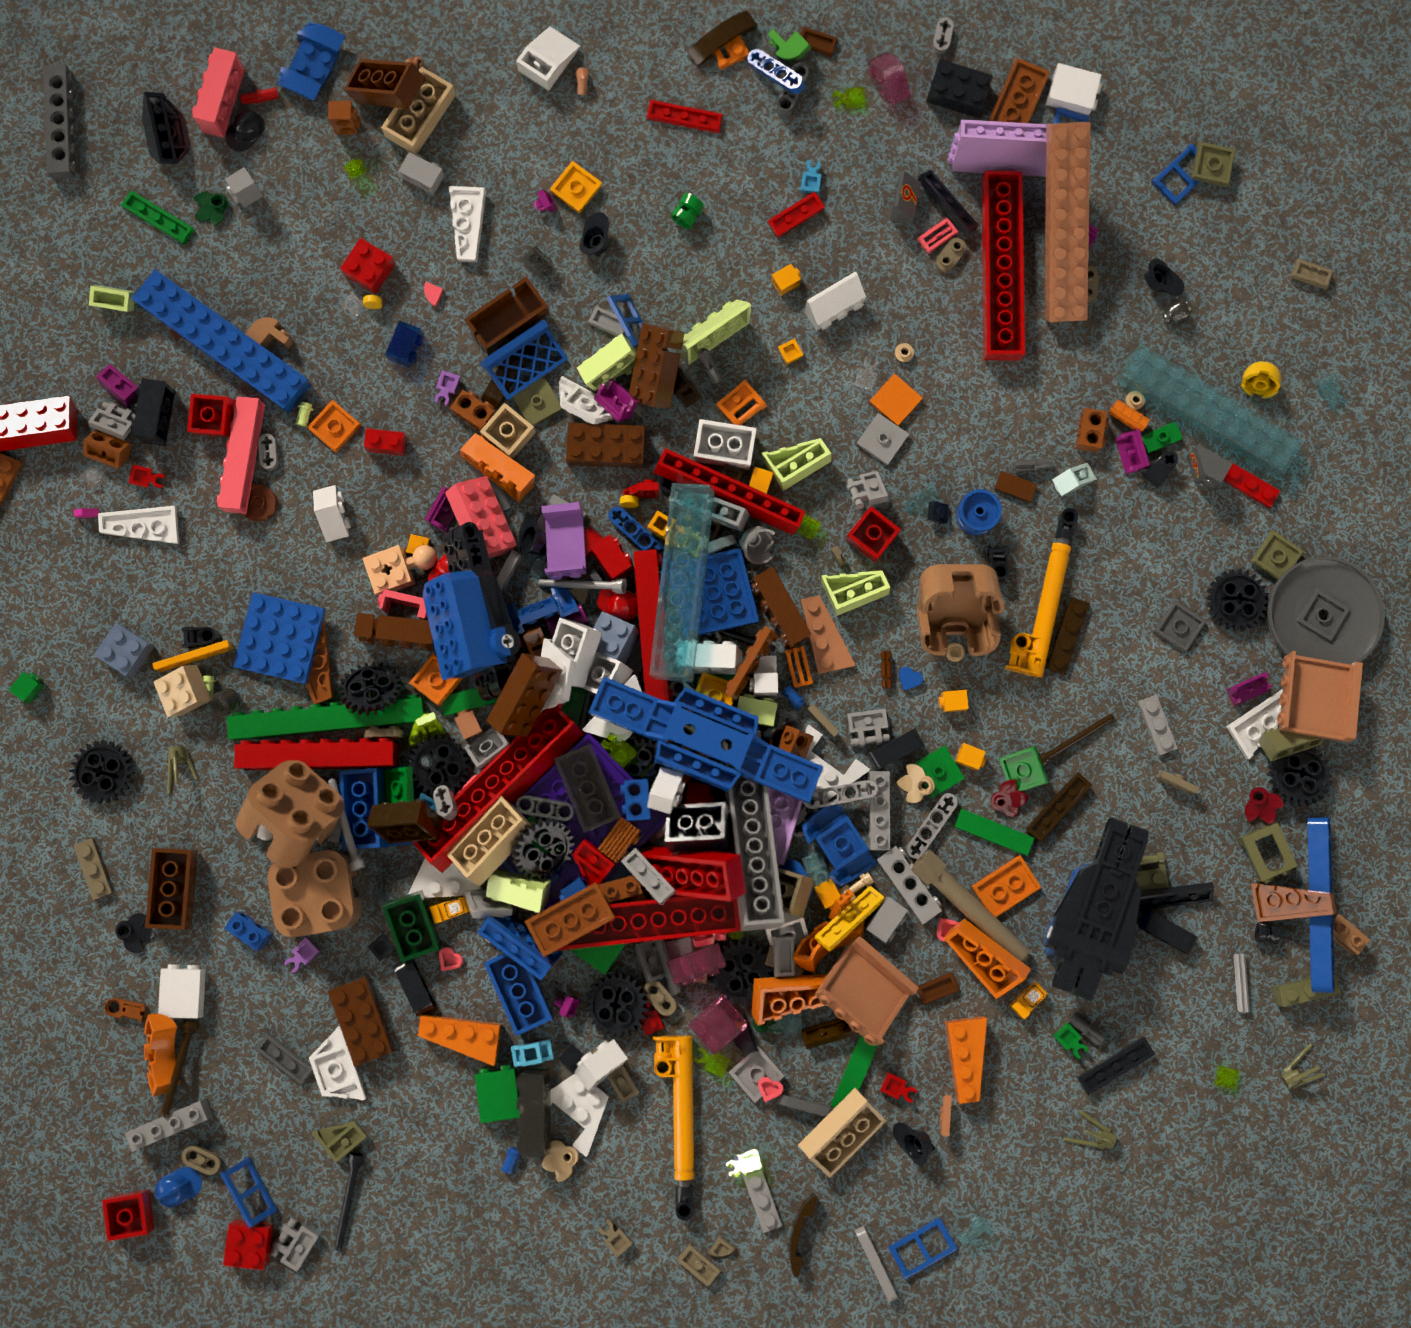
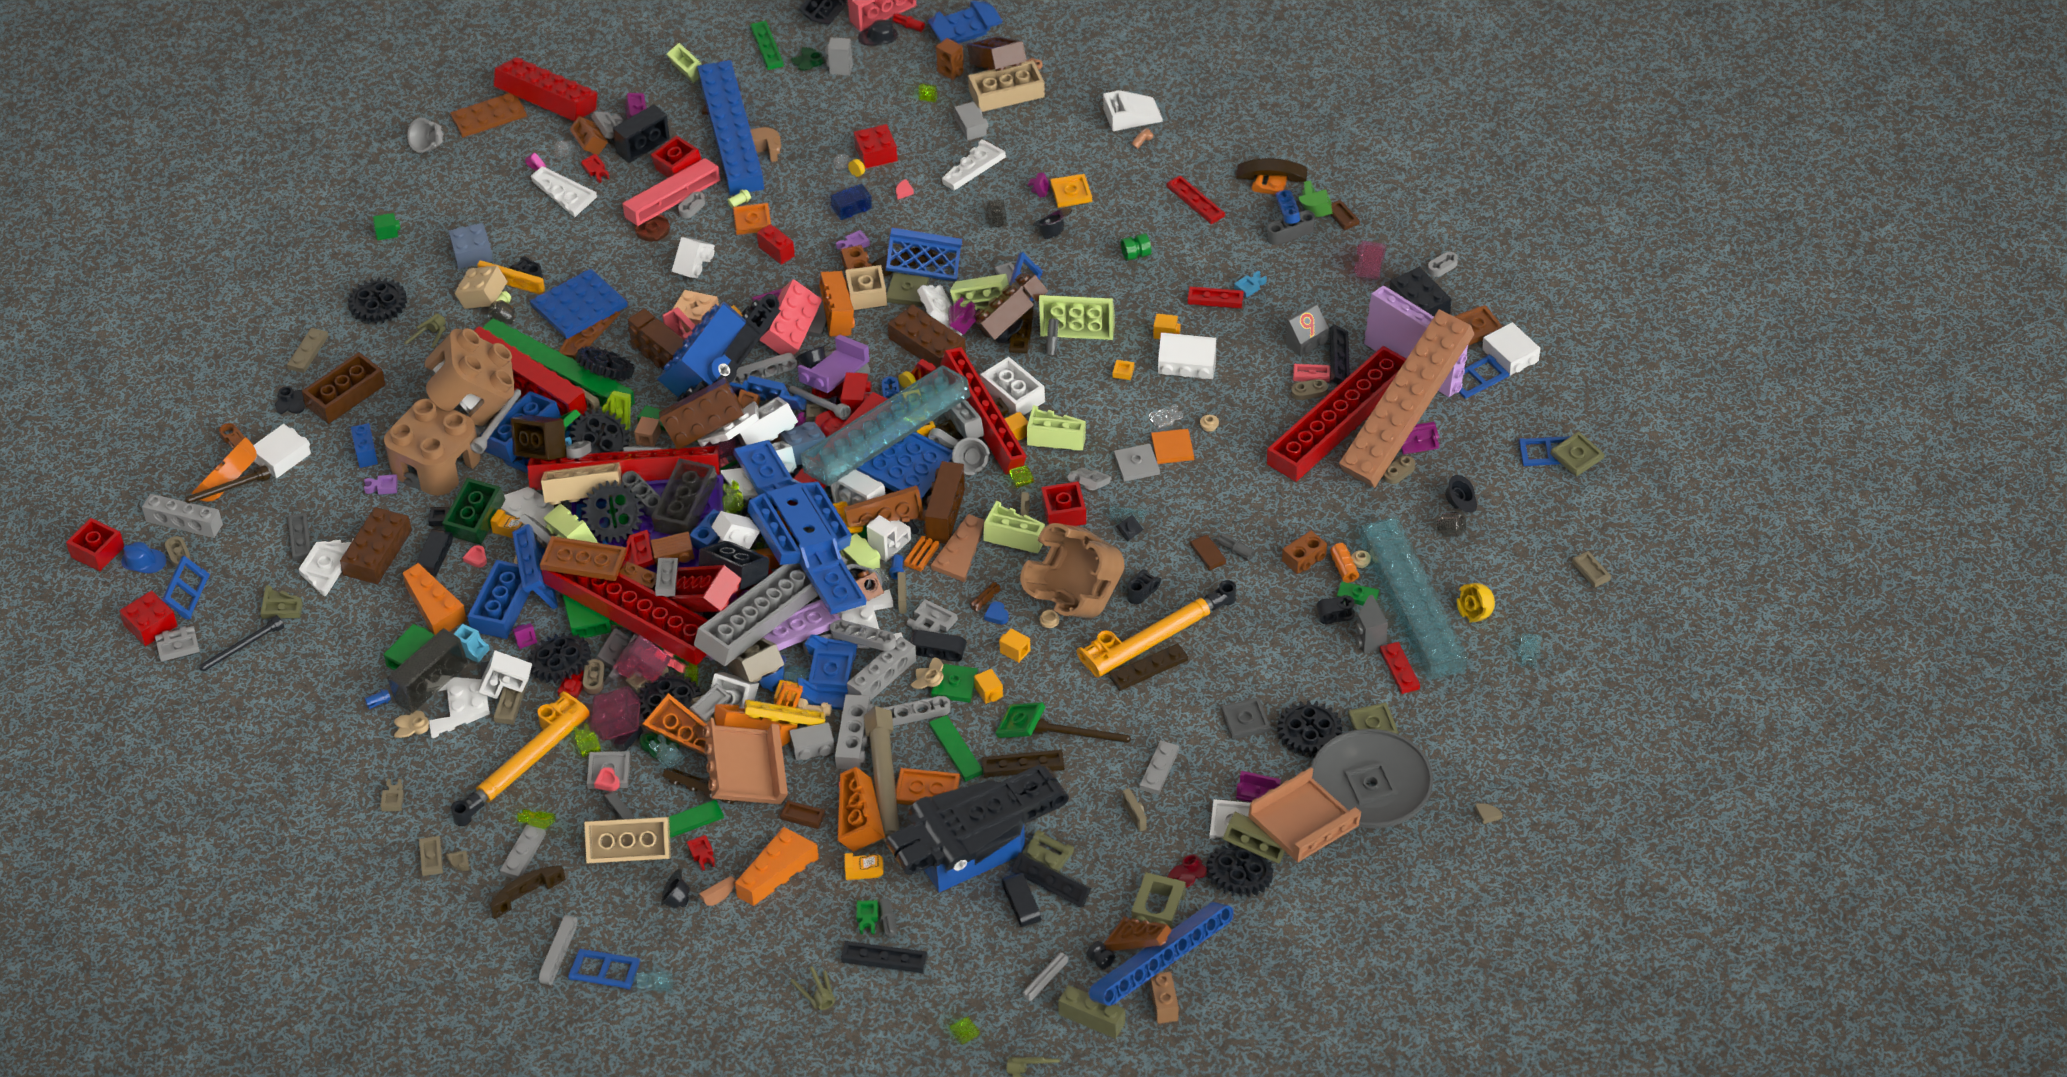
camera: 45 degrees right, 35 degrees down
(430, 683) = (653, 395): orange tile -> none
(507, 316) = (942, 221): reddish brown piece -> none
(737, 400) = (1054, 373): orange plate -> none
(852, 98) = (1332, 260): clear neon green plate -> none
(976, 523) = (1159, 542): blue wheel -> none
(1011, 798) = (991, 734): dark red plate -> none
(1074, 479) = (1258, 572): light aqua slope -> none
(1132, 451) = (1325, 585): magenta hinge -> none

